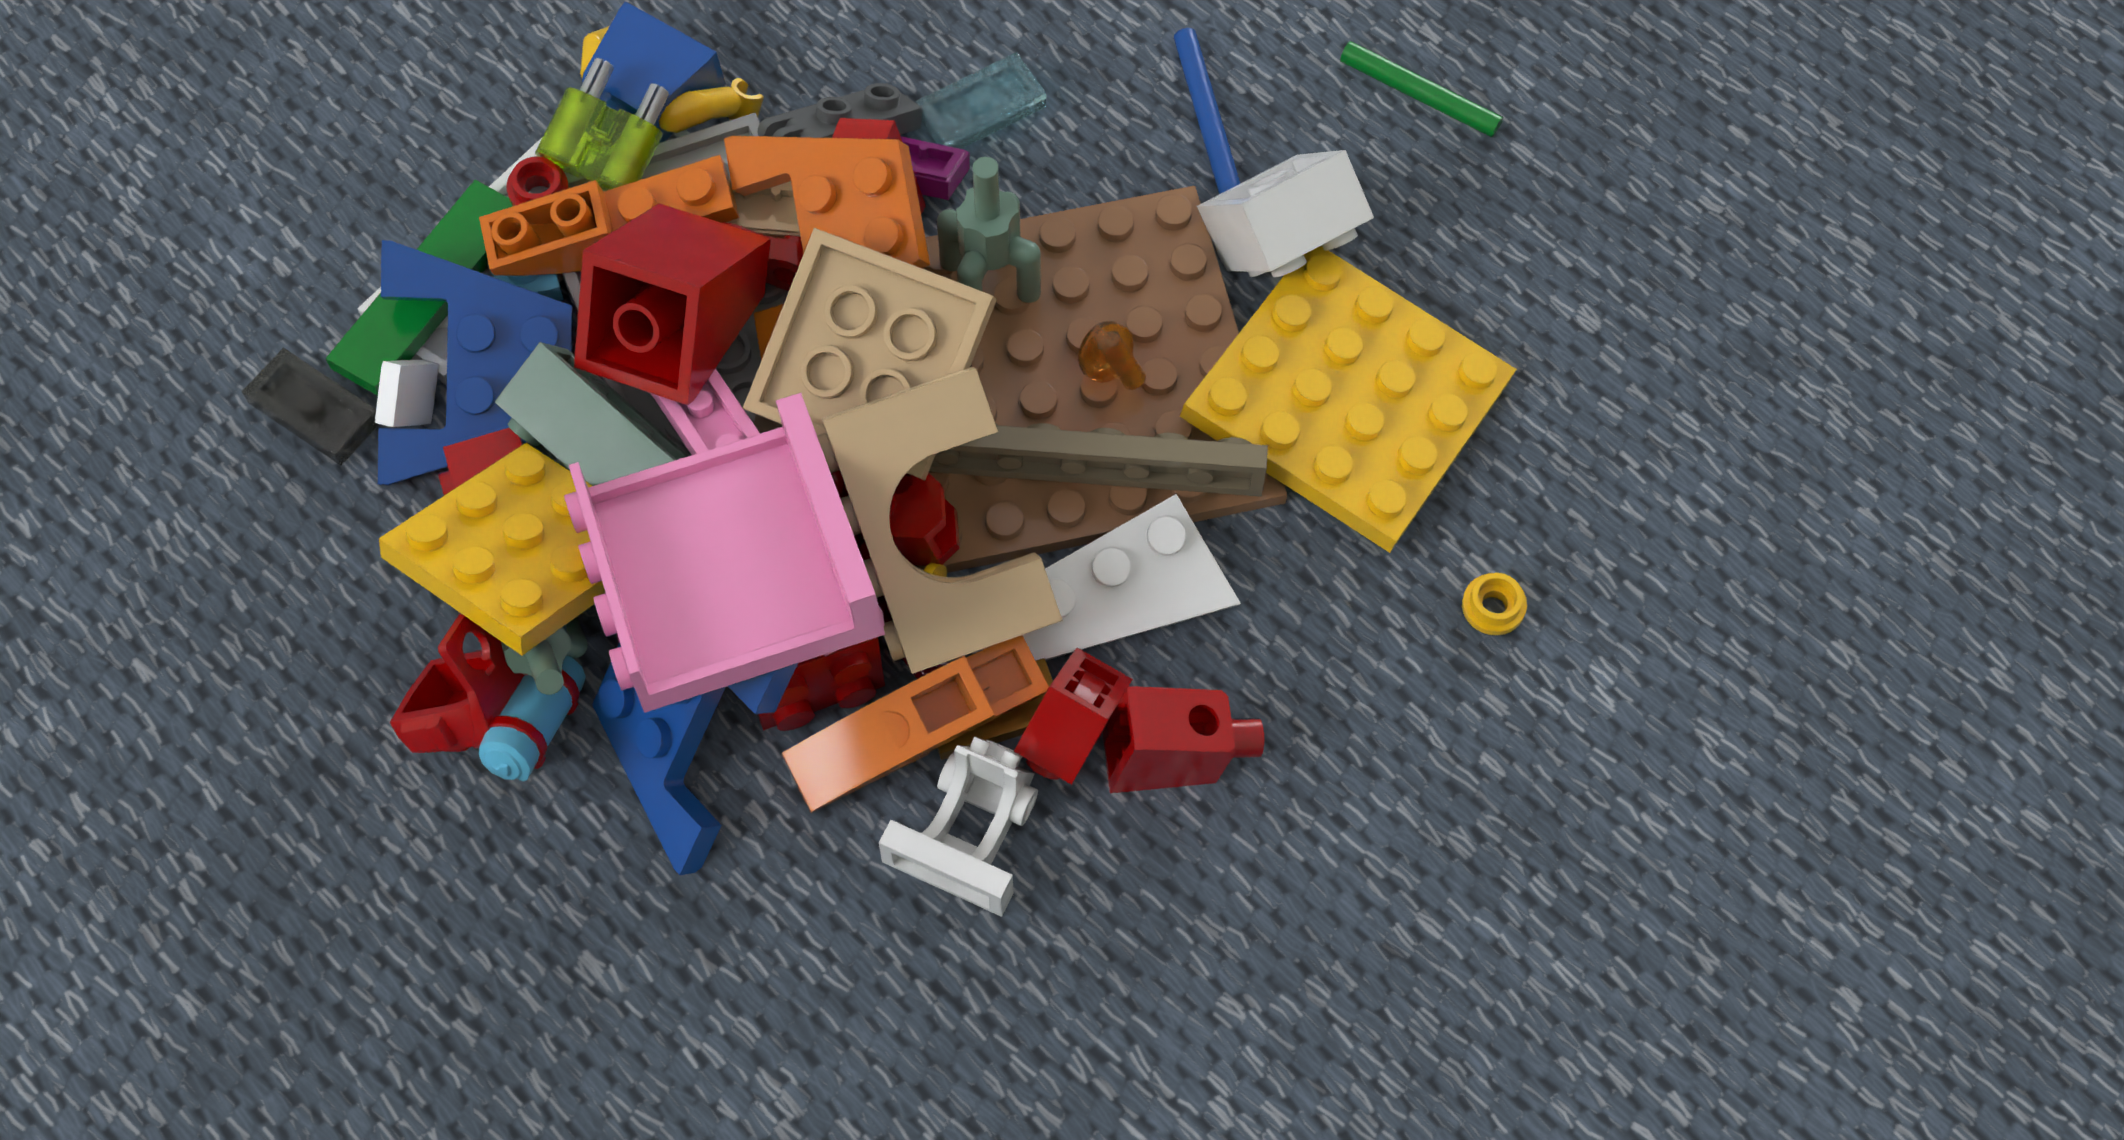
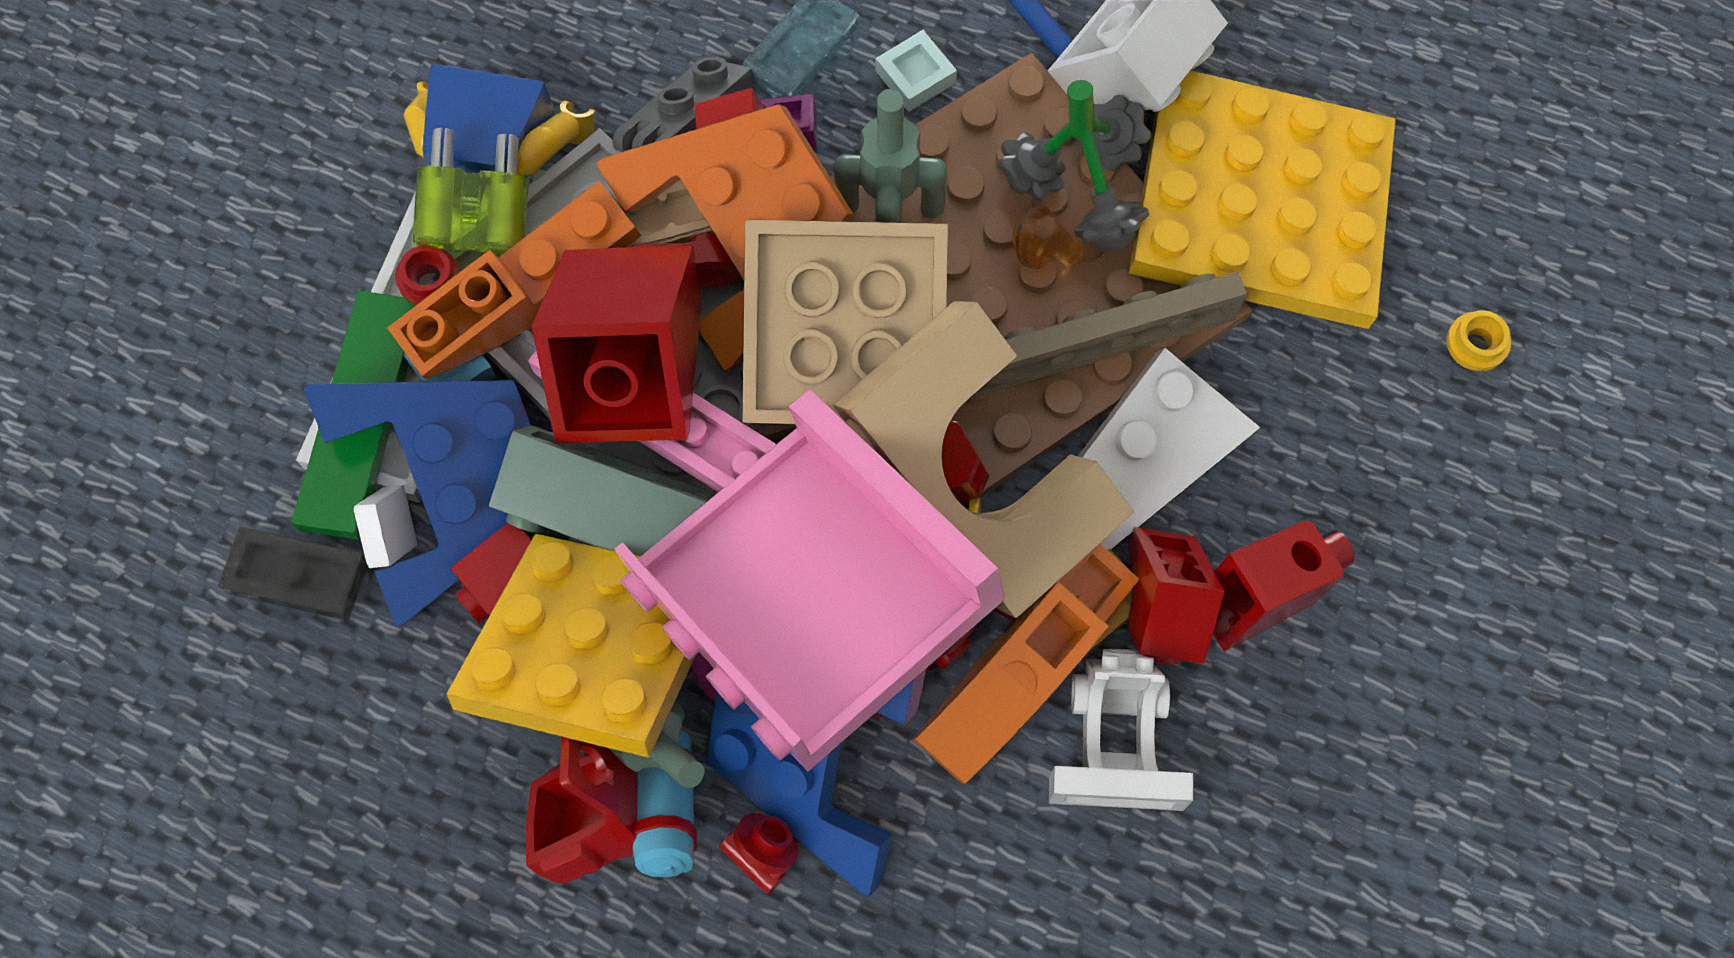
camera: 20 degrees left, 5 degrees up
(604, 797) = (762, 849): none -> red plate
(1077, 164) = (916, 70): none -> light aqua plate
(1136, 290) = (1108, 138): none -> dark grey plant

